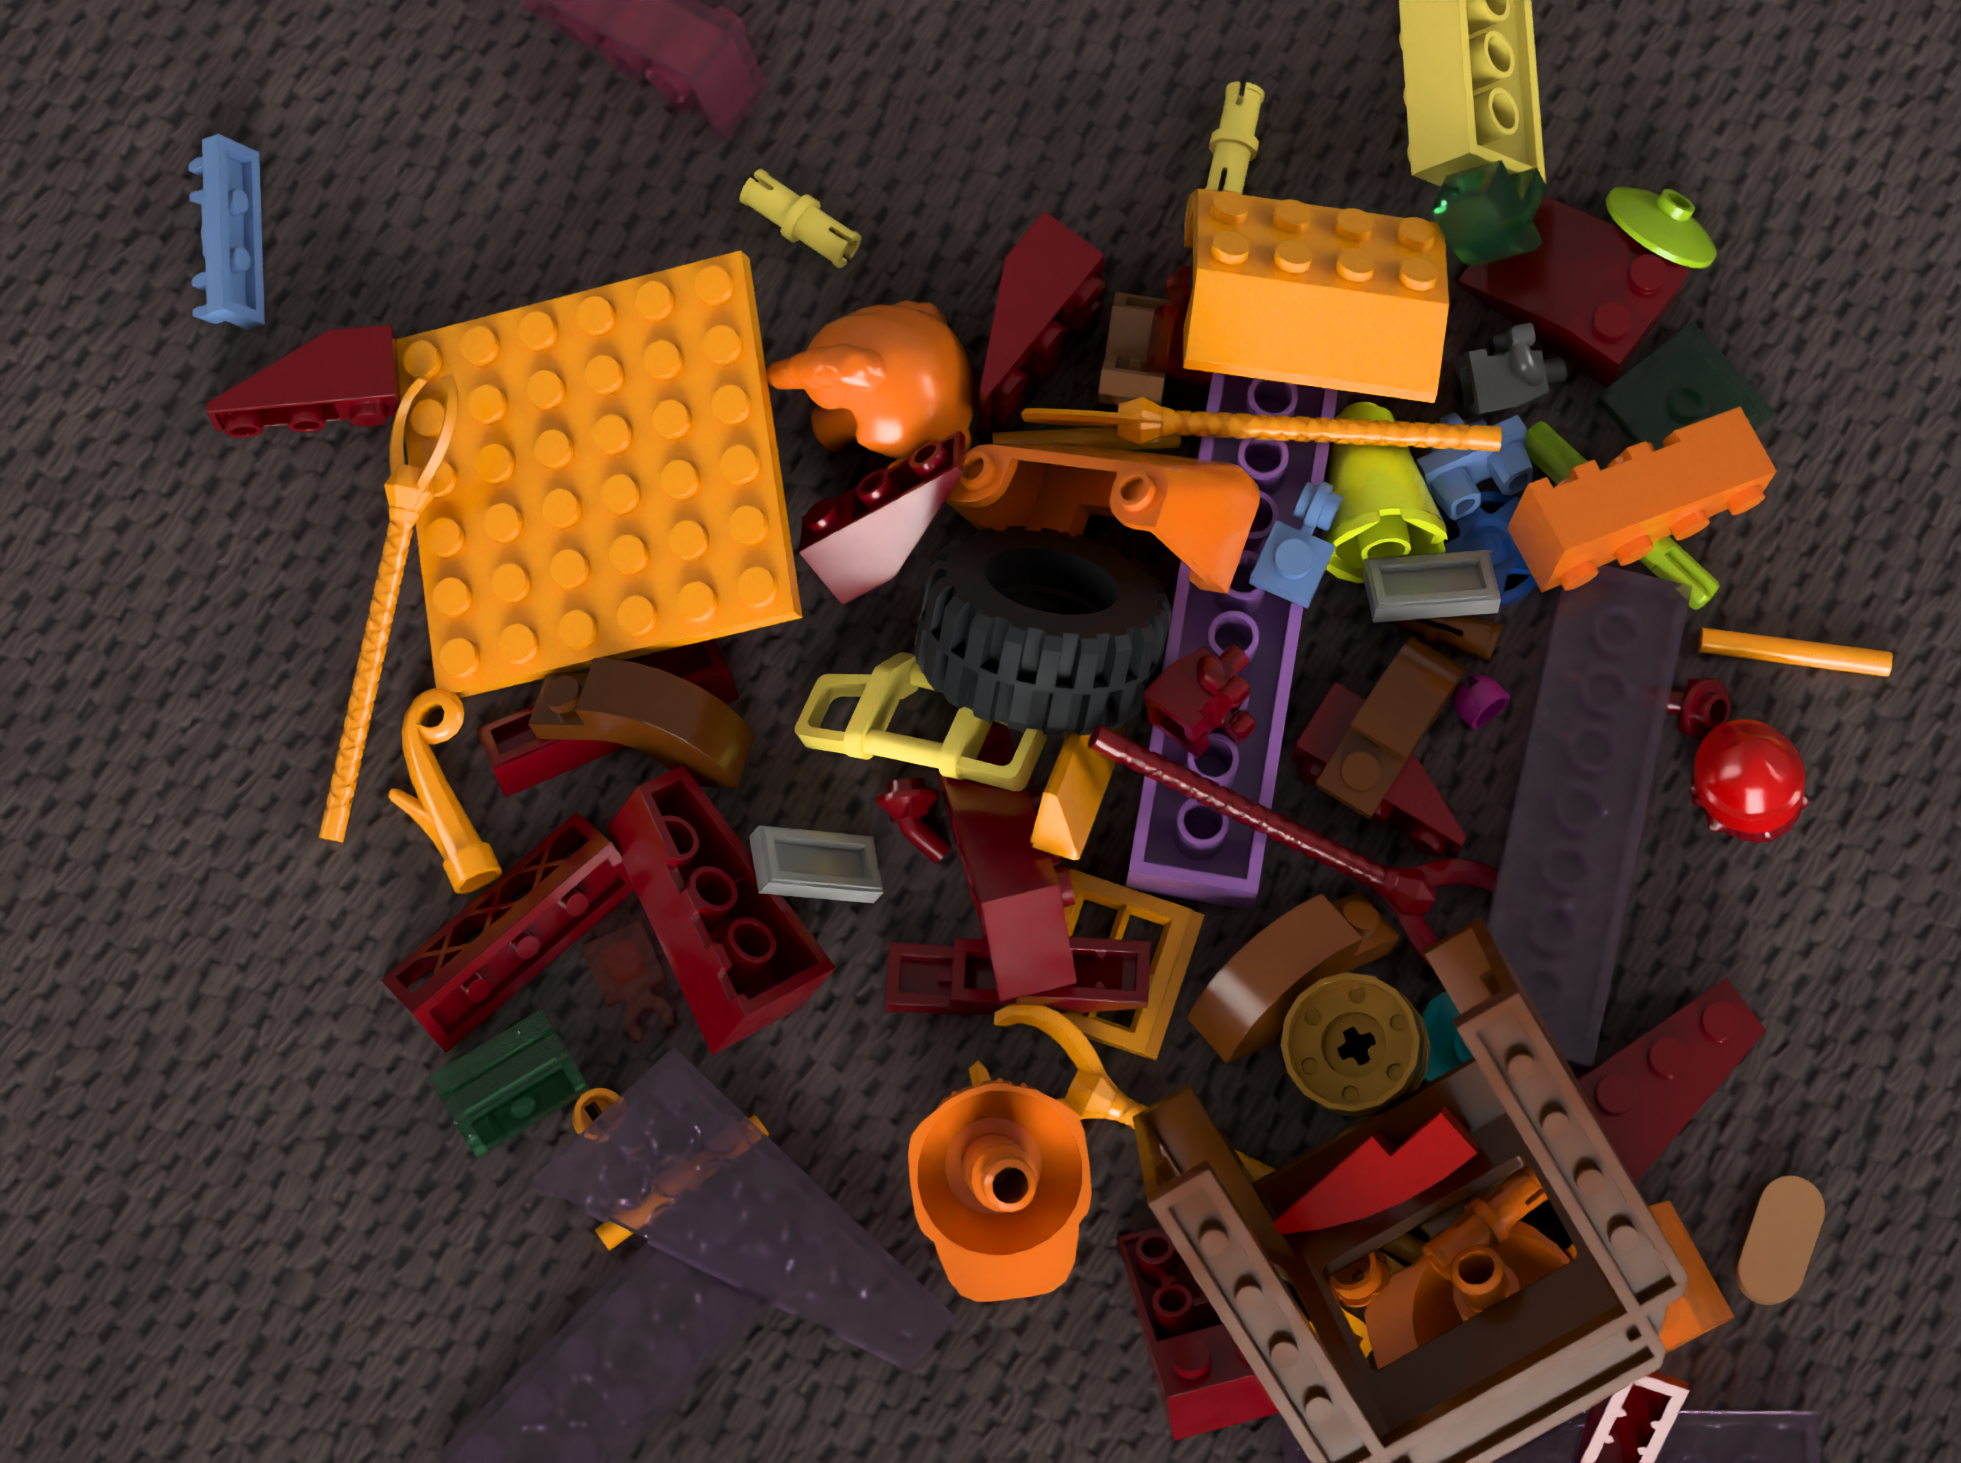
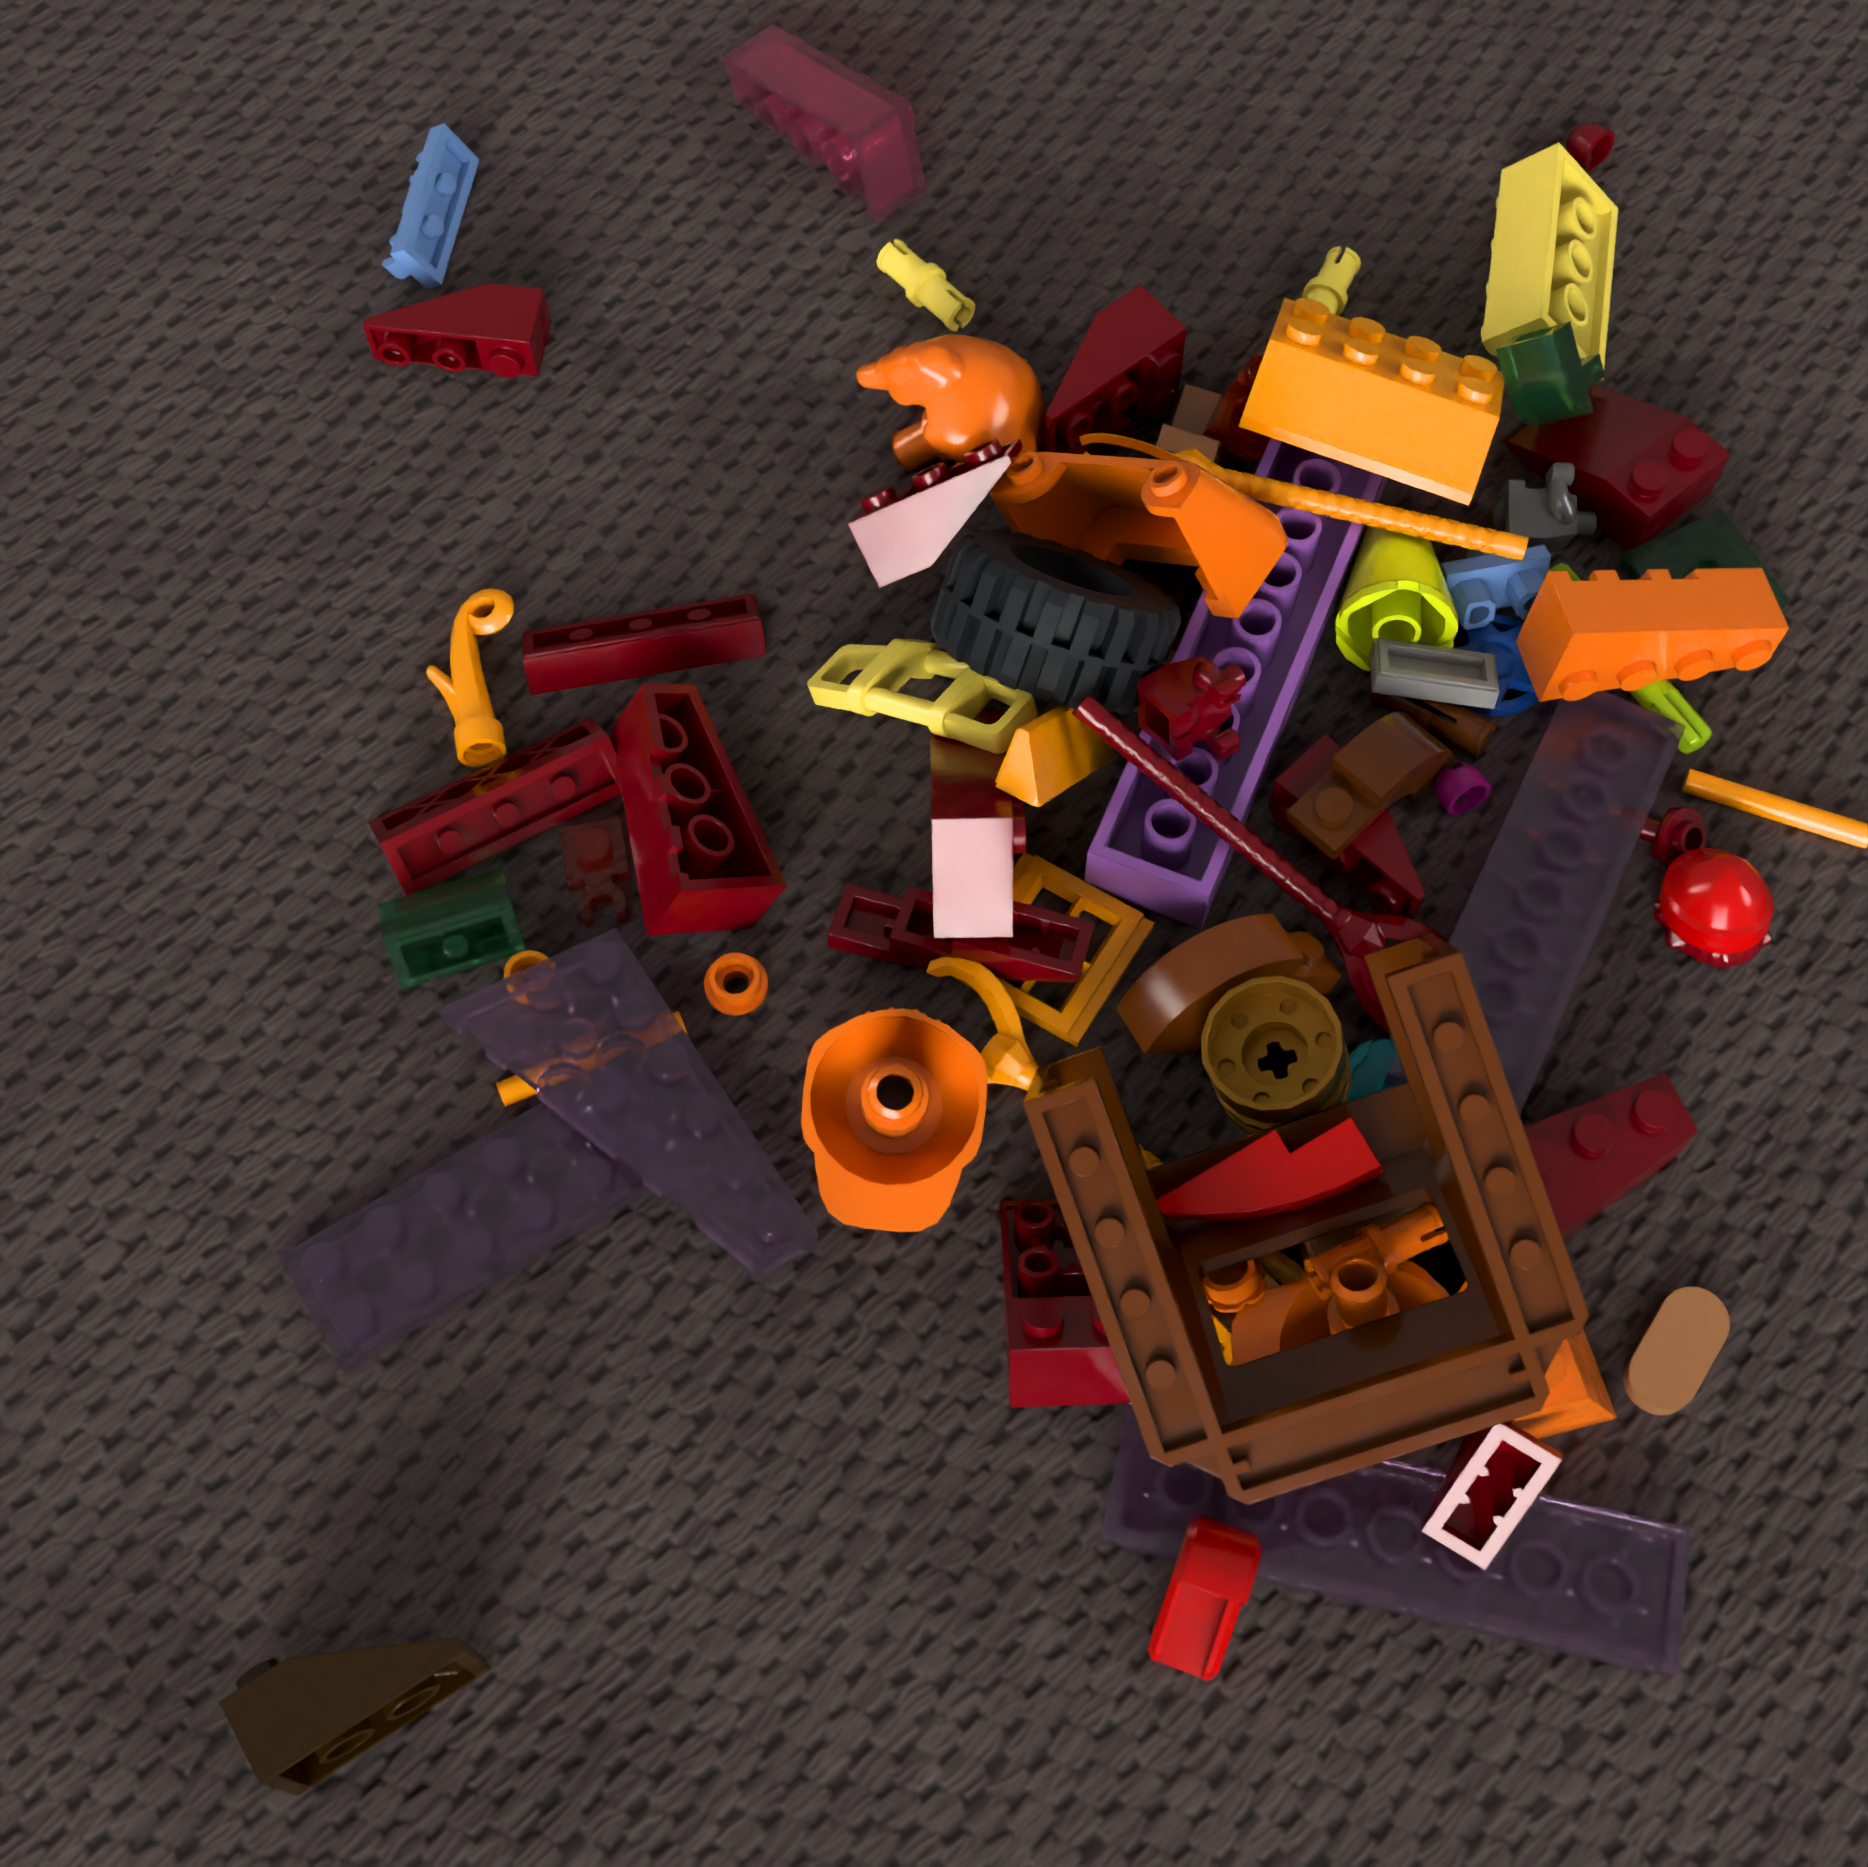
camera: 15 degrees right, 10 degrees down
(407, 494) = (514, 420): light orange piece -> none
(599, 478) = (686, 440): light orange plate -> none
(648, 713) = (678, 634): reddish brown arch -> none
(804, 1052) = (730, 967): none -> orange plate
(816, 864) = (794, 796): light grey tile -> none
(907, 804) = (895, 765): dark red plate -> none
(1294, 558) = (1309, 612): medium blue plate -> none
(1662, 225) = (1713, 416): lime dish -> none

